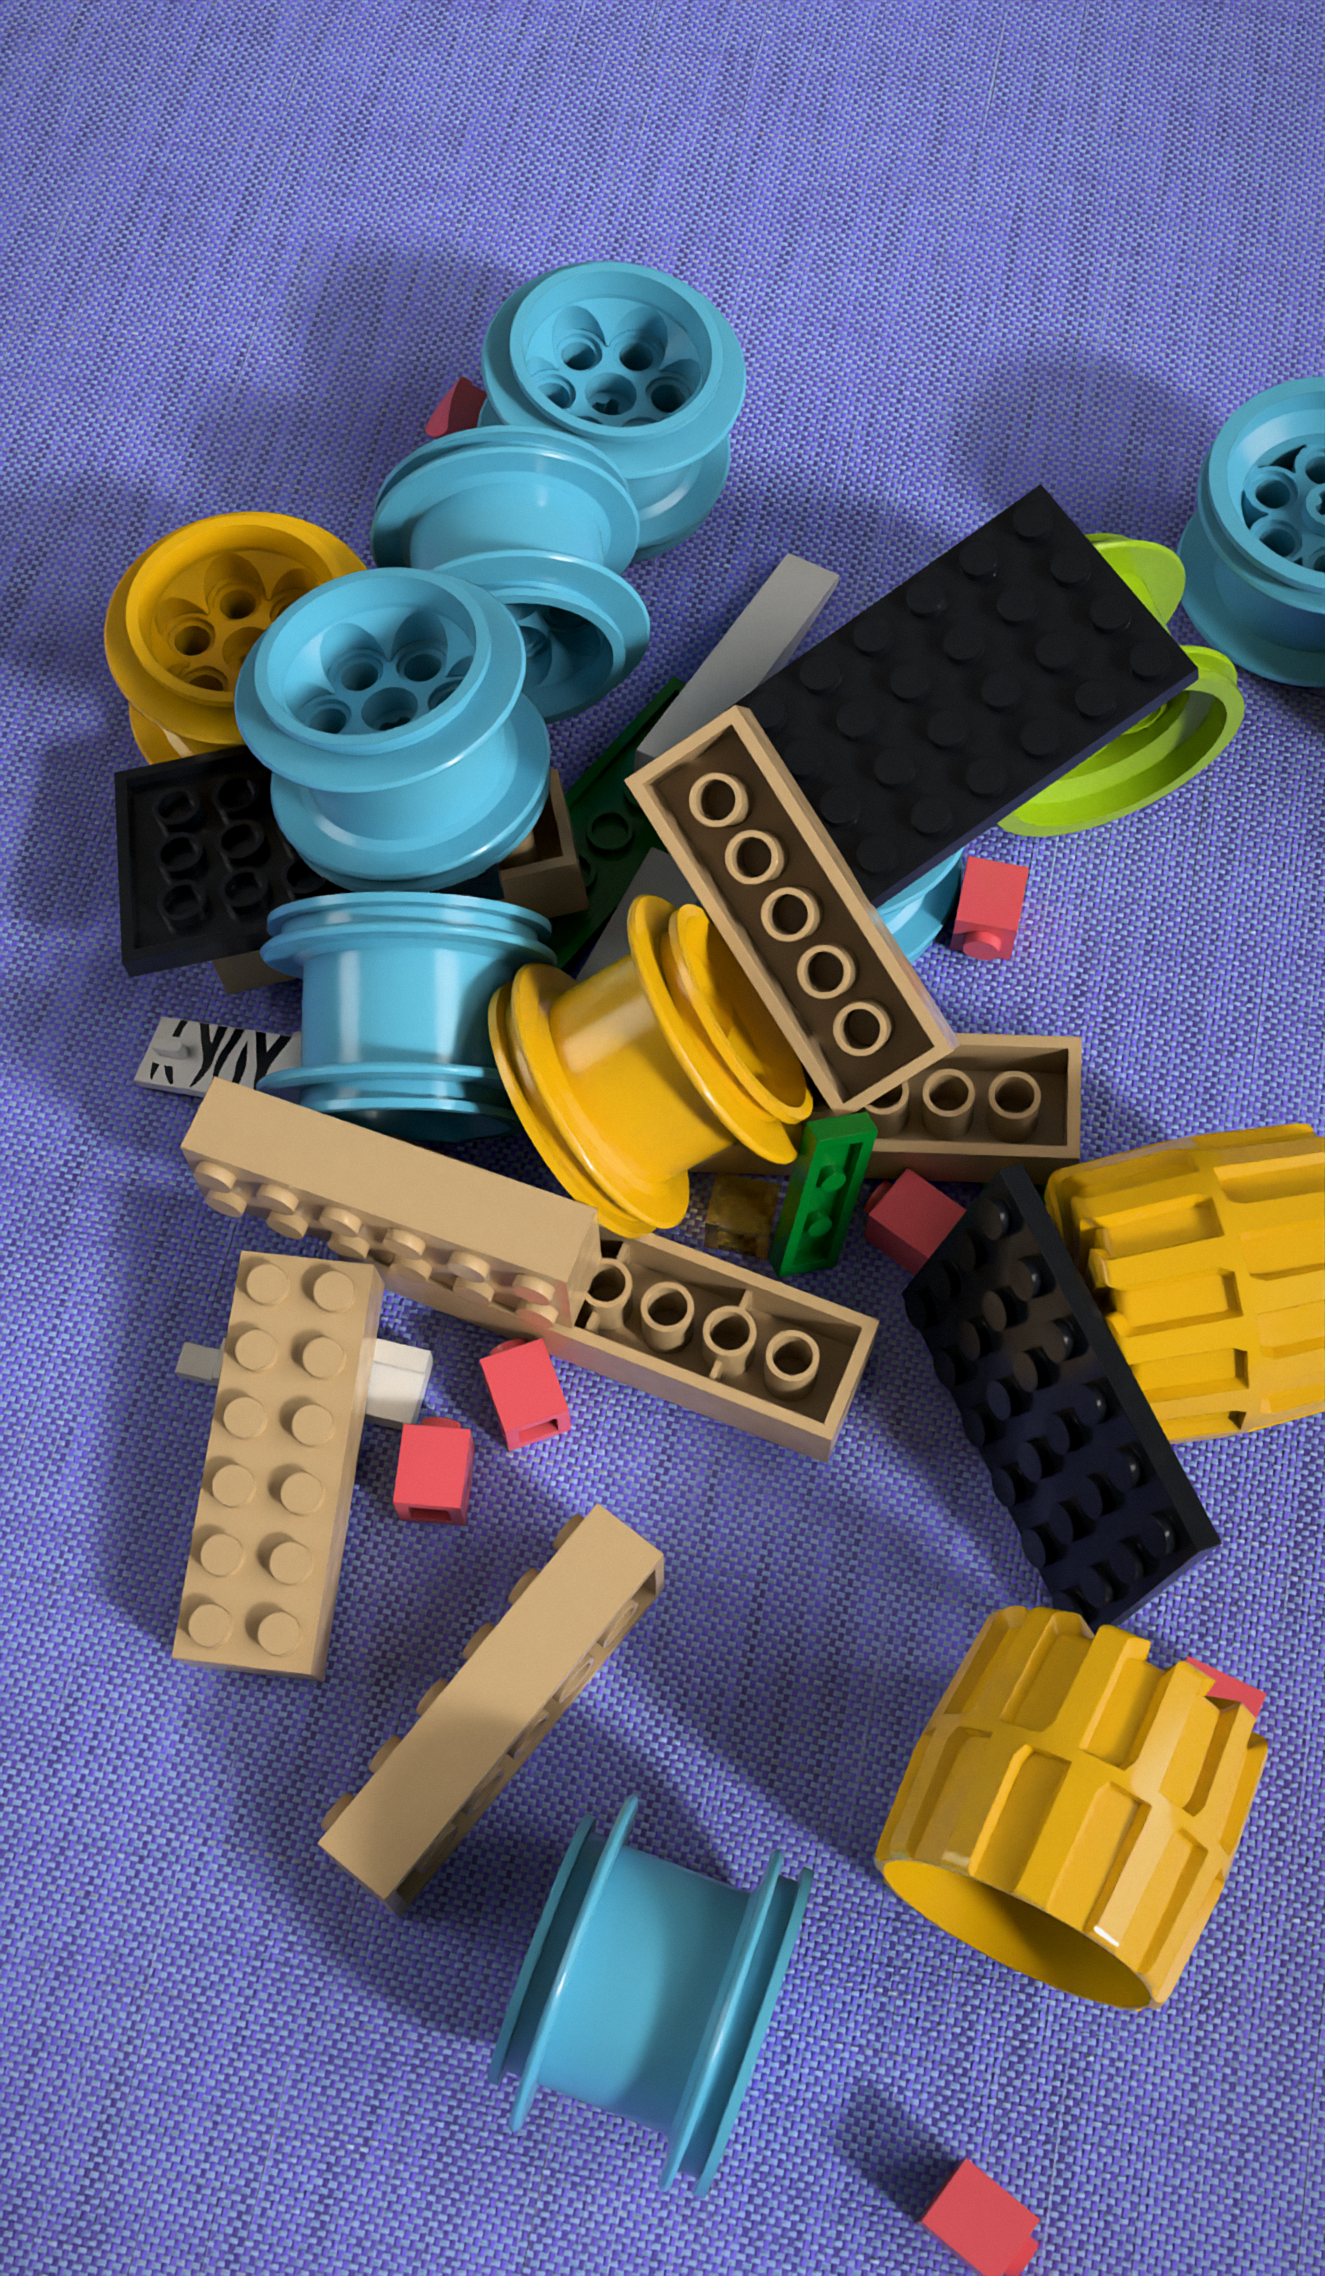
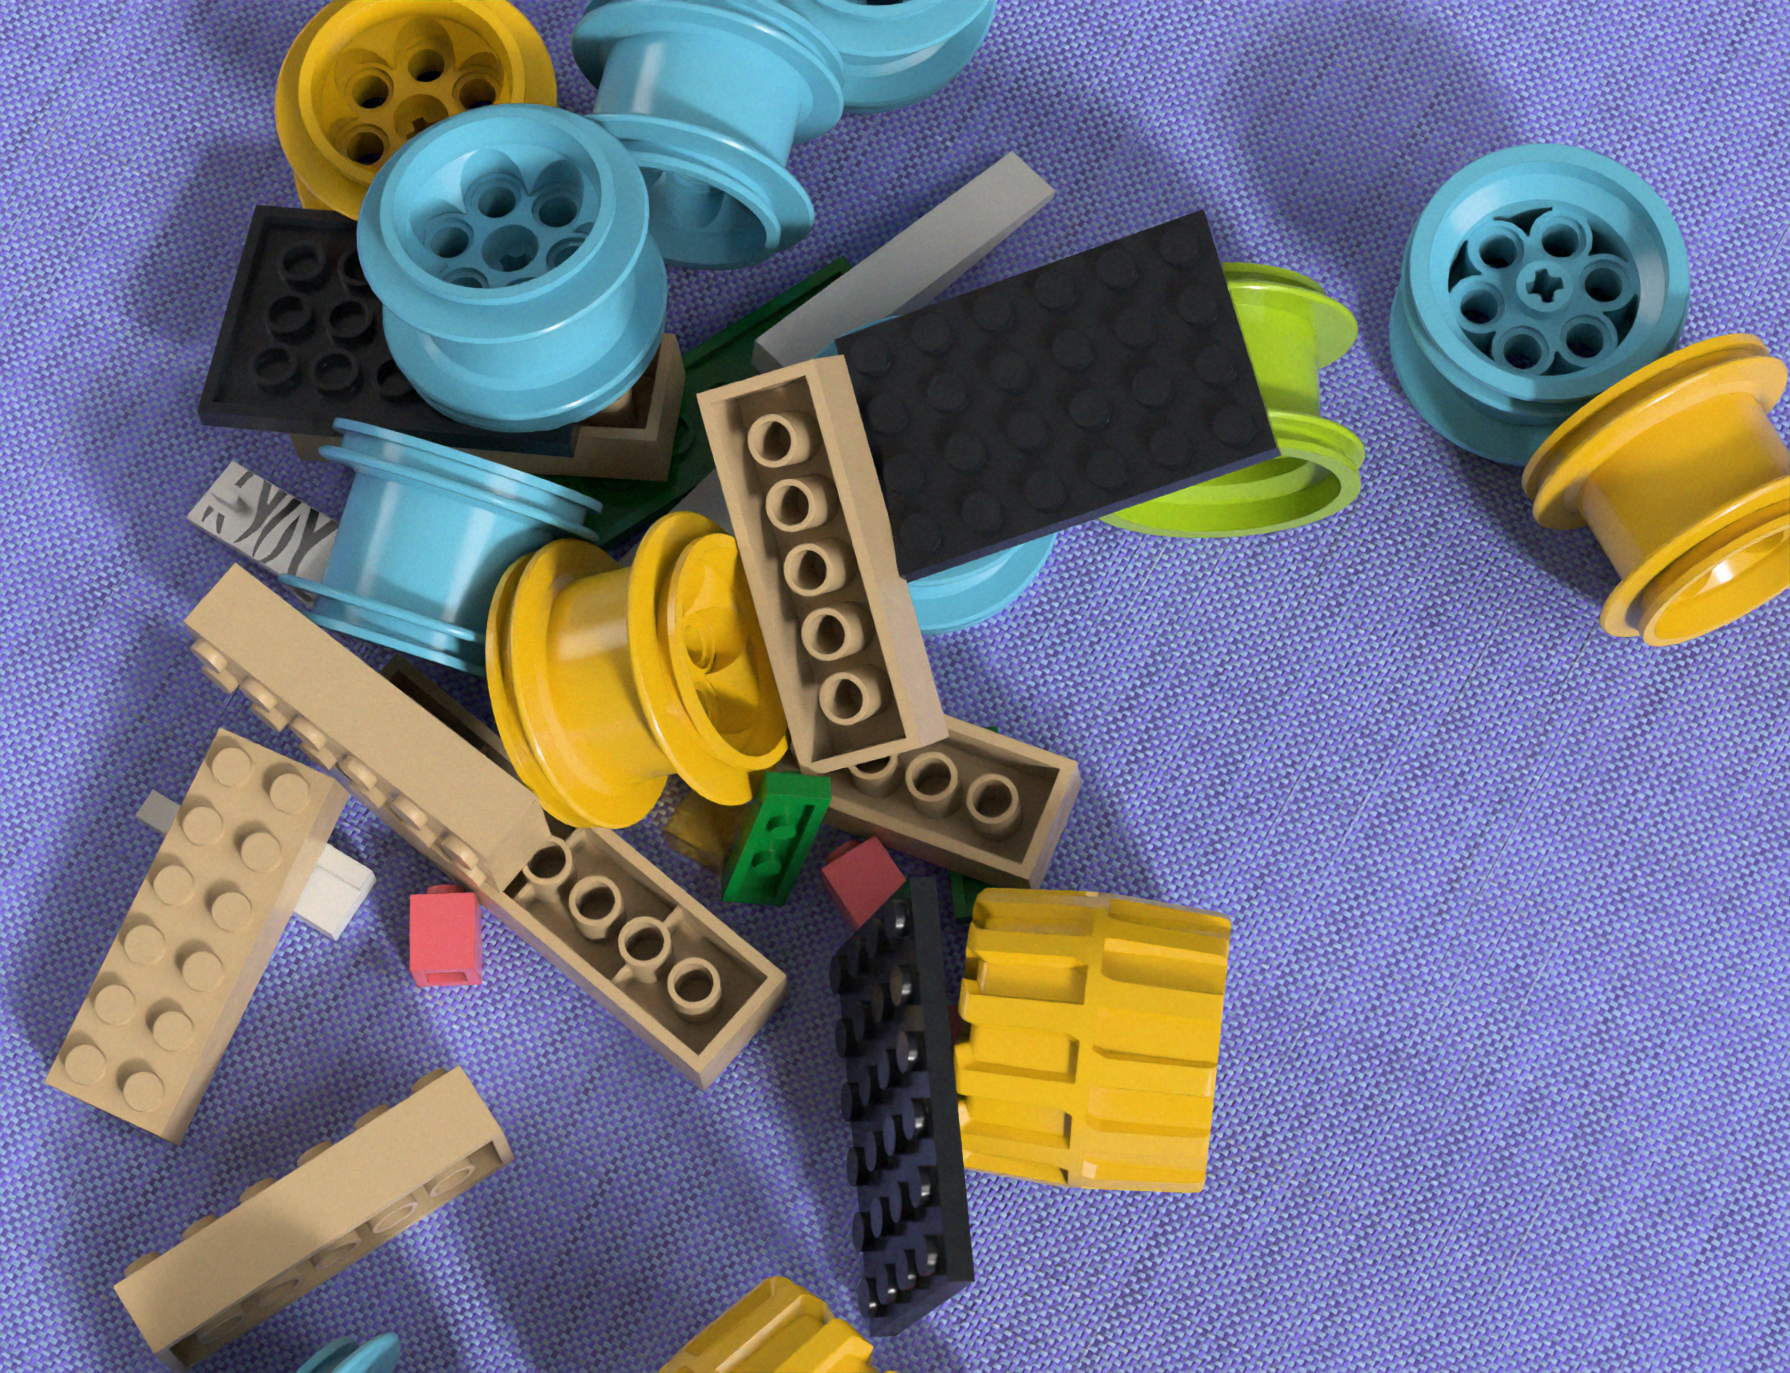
camera: 20 degrees right, 5 degrees up
(434, 1472) = (338, 986): coral brick -> none
(989, 909) = (1062, 596): coral brick -> none

